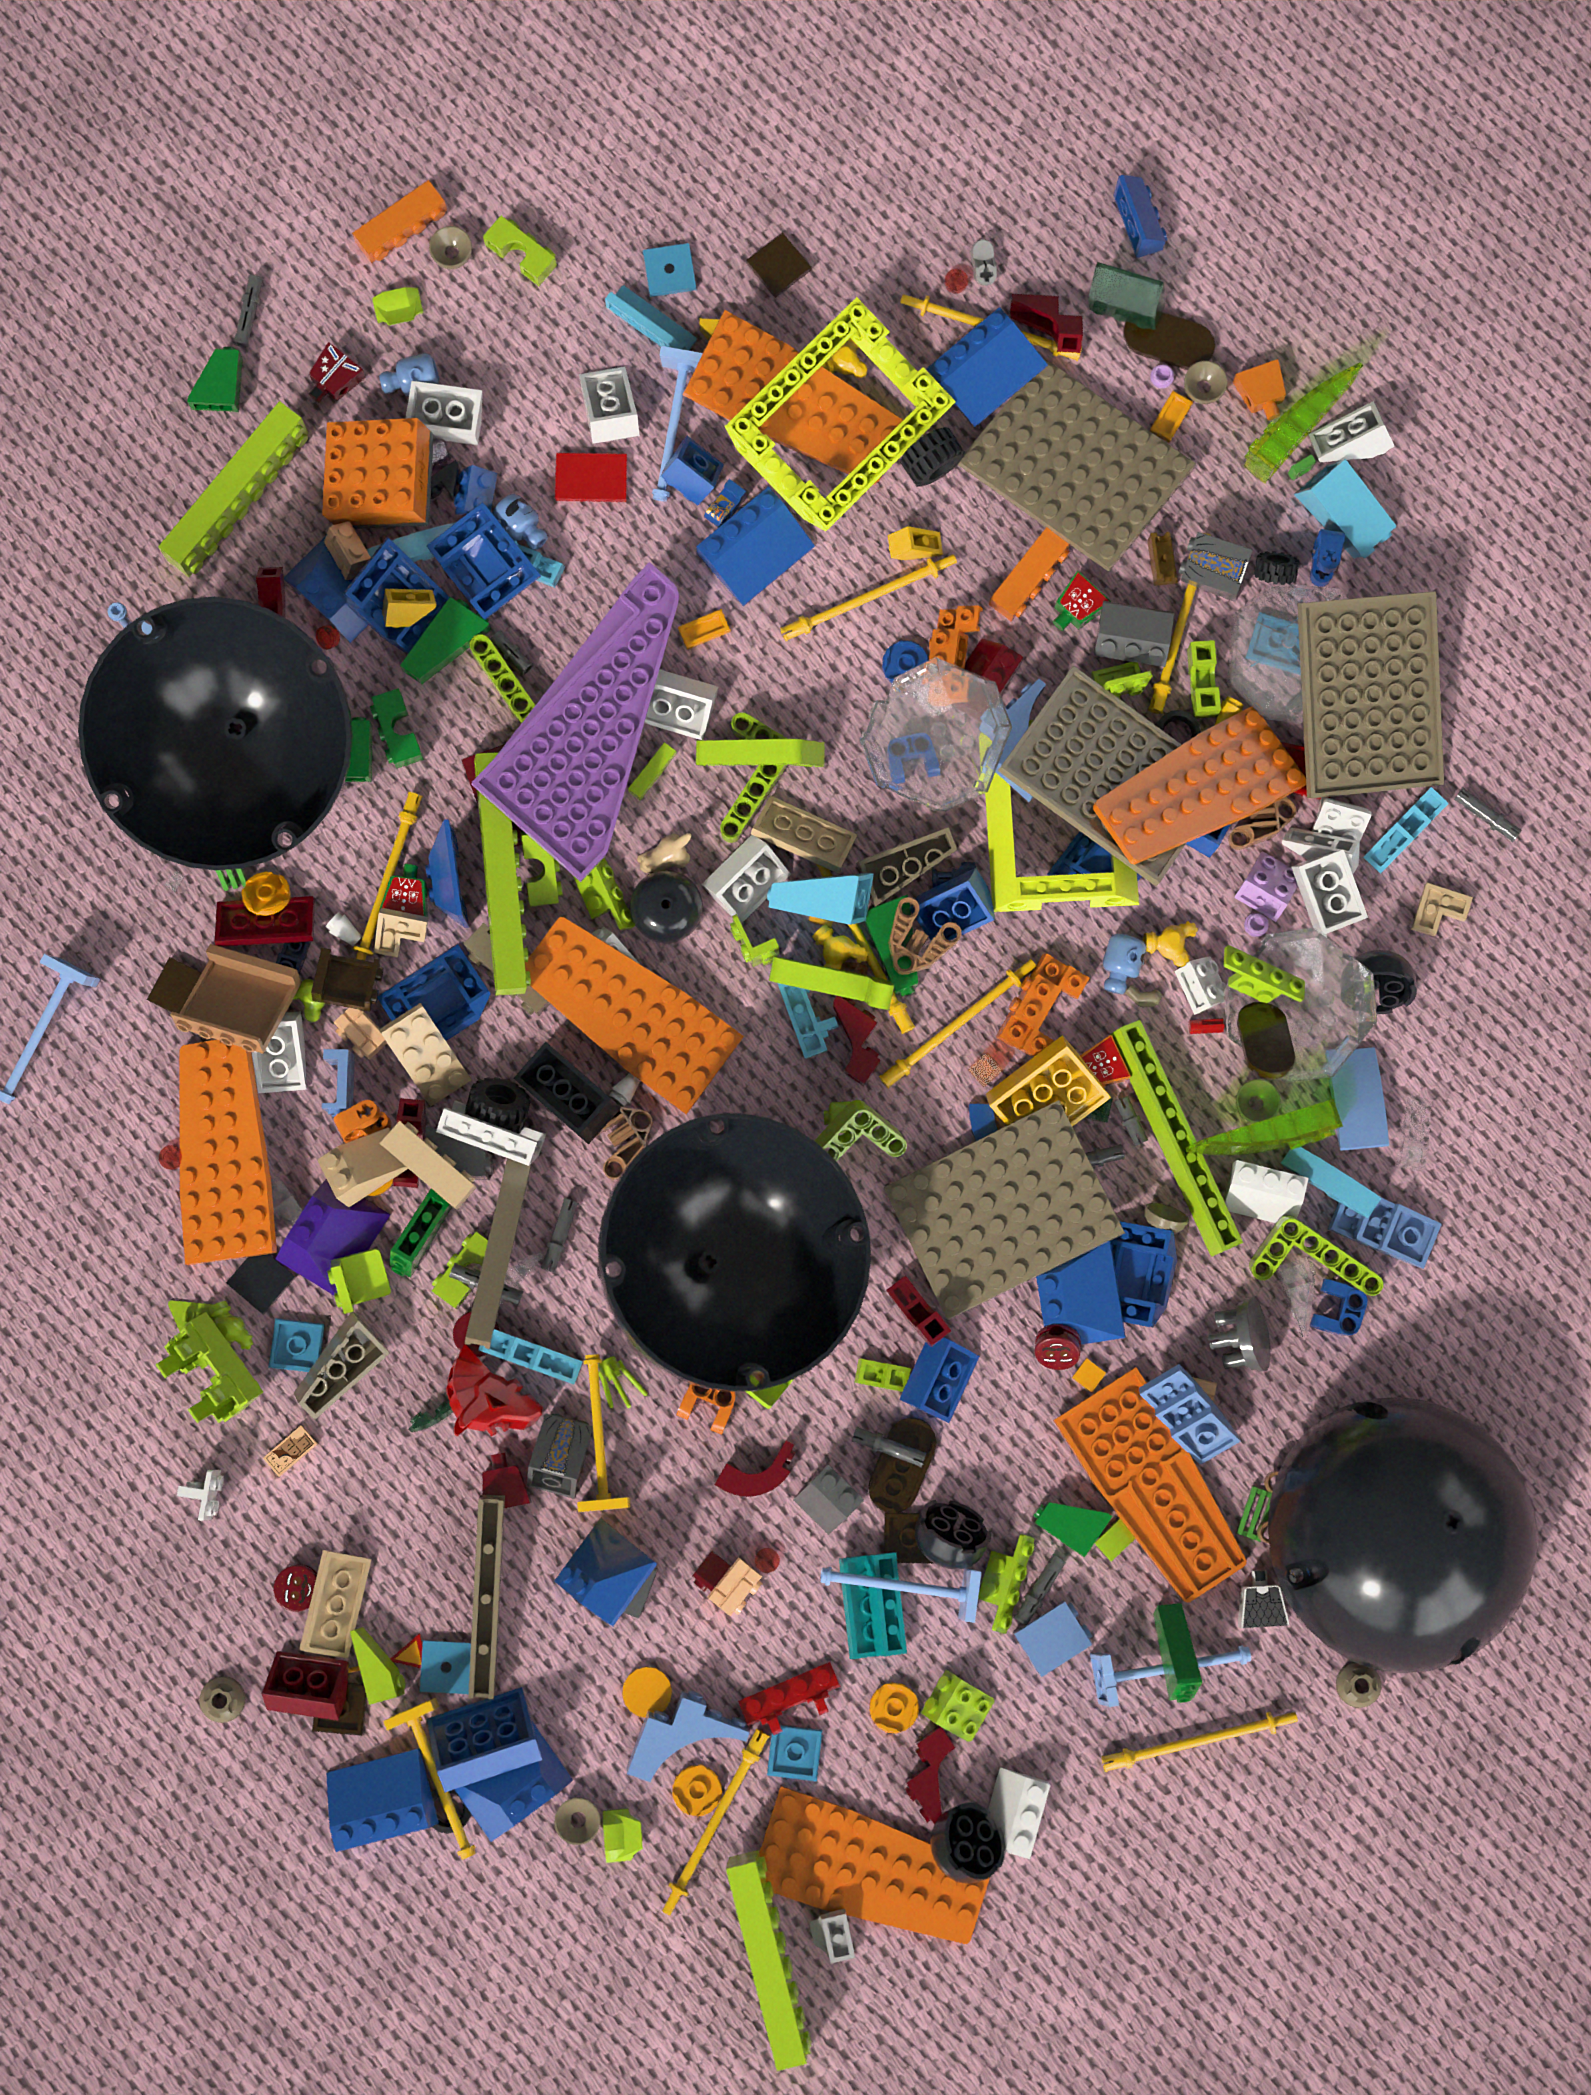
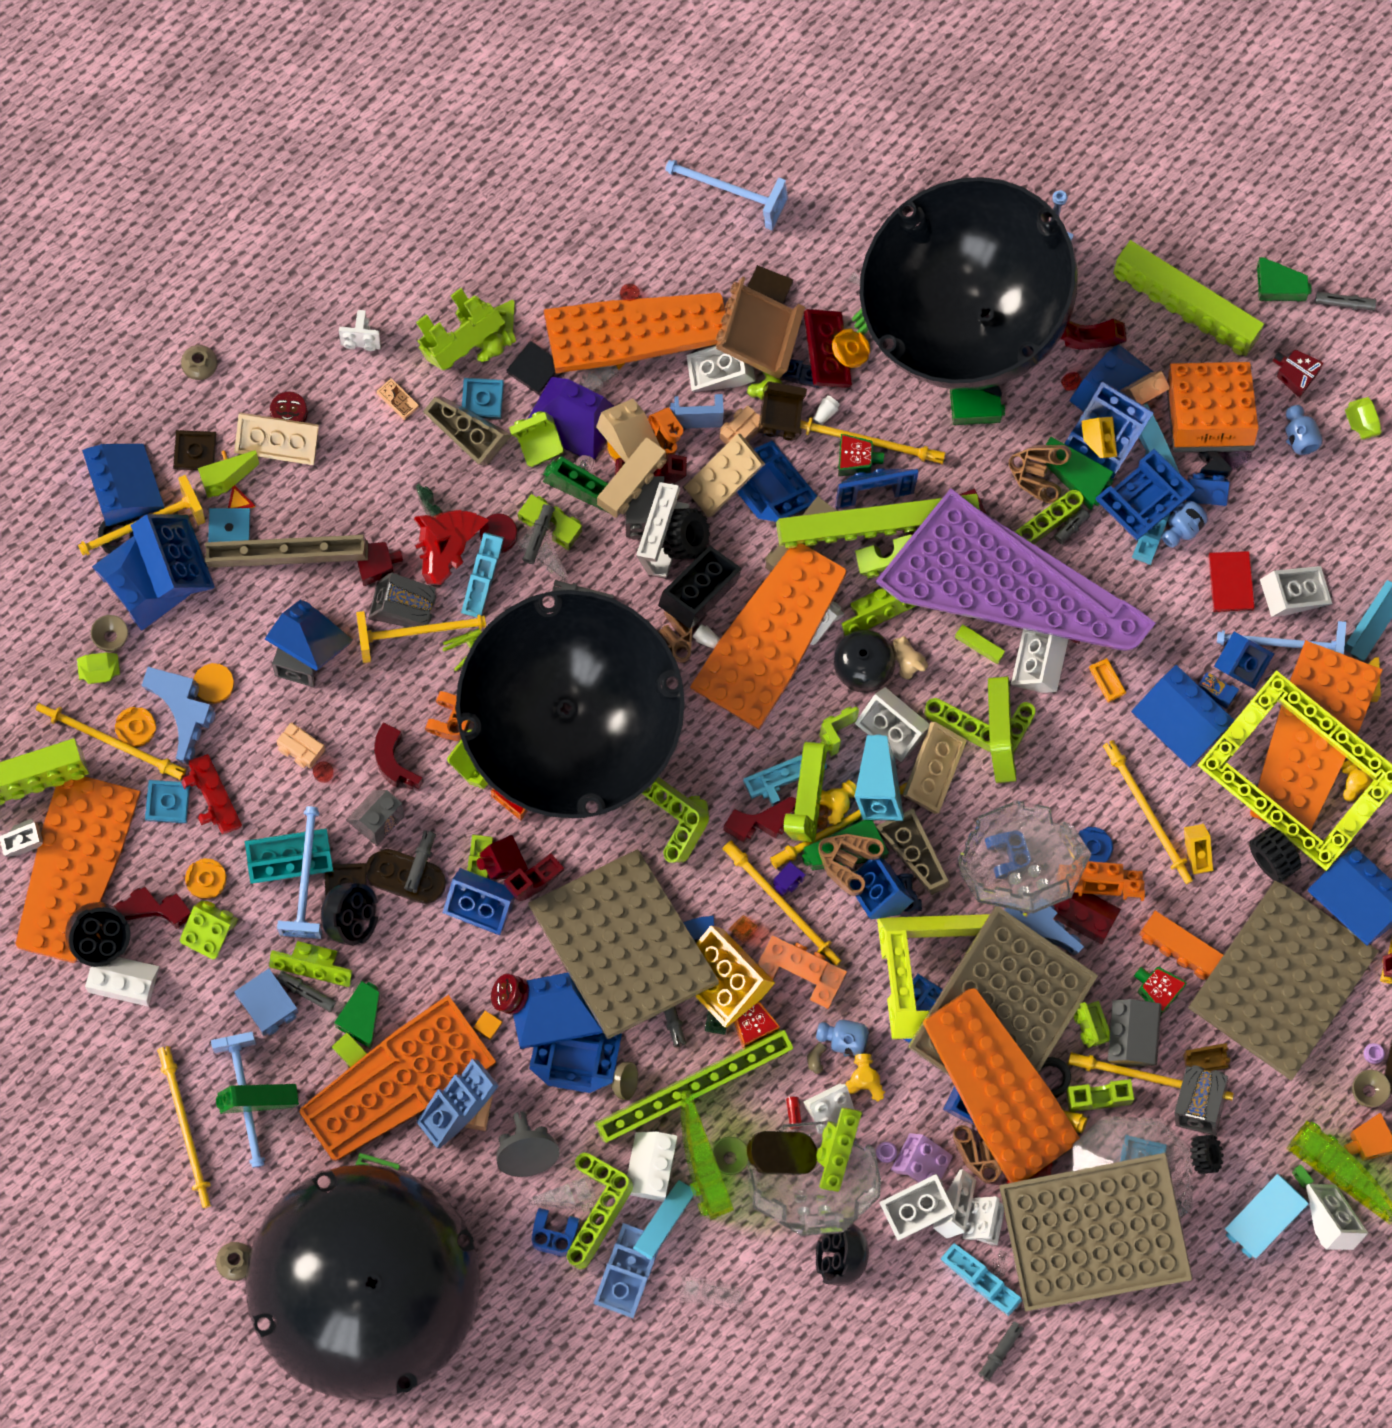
camera: 85 degrees right, 10 degrees down
(306, 1685) = (211, 421): dark red slope -> none
(390, 708) = (1012, 431): green arch -> none
(395, 925) = (829, 446): tan plate -> none
(397, 1218) = (586, 463): none -> clear piece
(431, 685) = (1032, 484): none -> medium nougat connector
(447, 411) = (1273, 458): white slope -> none
(498, 1254) = (563, 539): dark tan tile -> none
(710, 1572) = (312, 722): dark red slope -> none
(891, 1348) = (501, 858): none -> dark red torso
(930, 1014) = (788, 879): none -> dark purple brick
(1131, 1121) = (707, 1051): dark grey pin -> none
(1171, 416) = (1338, 1063): light orange tile -> none
(1261, 1604) = (297, 1169): torso -> none
(1327, 555) = (1225, 1197): blue piece -> none
(1360, 1102) = (738, 1242): medium blue slope -> none
(1389, 804) = (1002, 1264): none -> clear piece
(1437, 902) = (917, 1305): tan plate -> none

